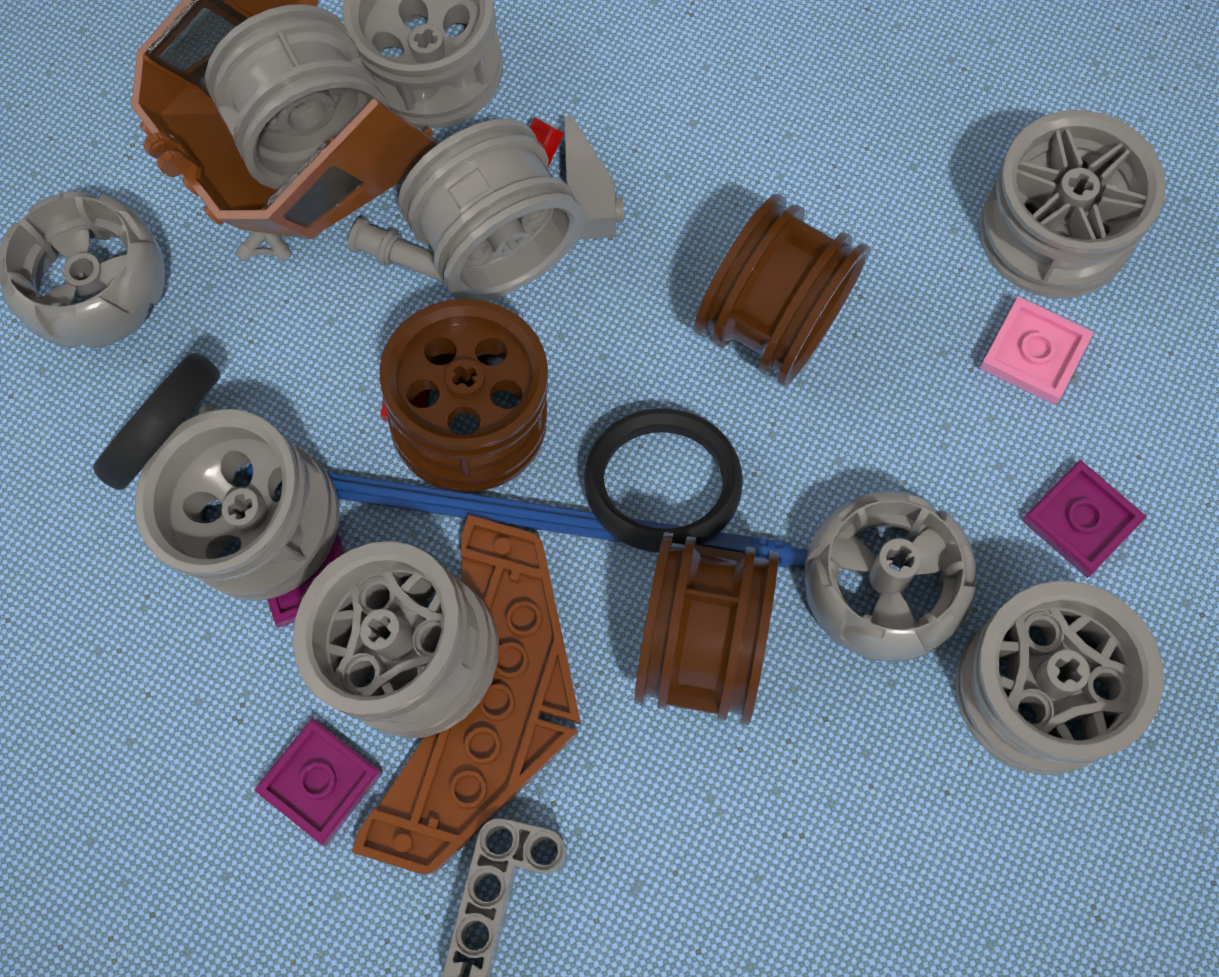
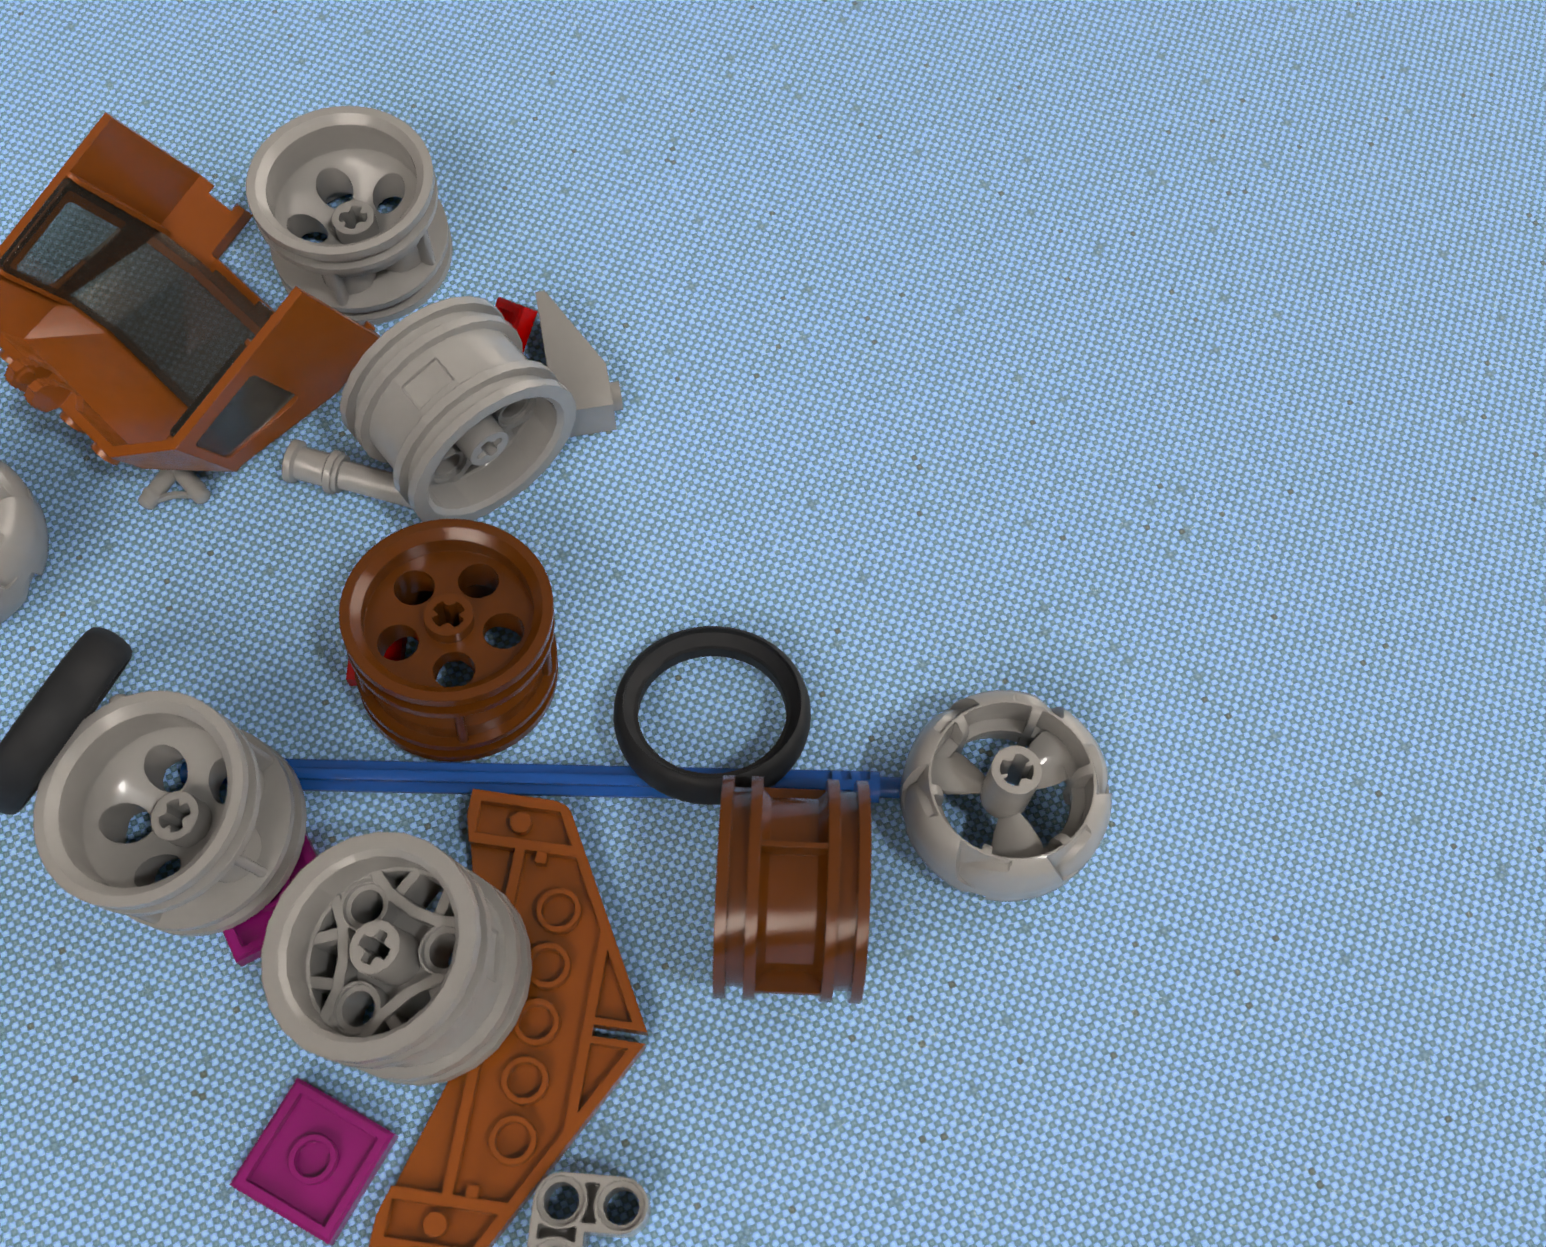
camera: 15 degrees left, 5 degrees down
(287, 87) = (183, 287): light grey wheel -> none
(780, 288) = (824, 464): reddish brown wheel -> none
(1036, 350) = (1136, 505): bright pink plate -> none
(1076, 178) = (1137, 319): light grey wheel -> none
(1083, 518) = (1222, 697): magenta tile -> none
(1087, 640) = (1252, 840): light grey wheel -> none

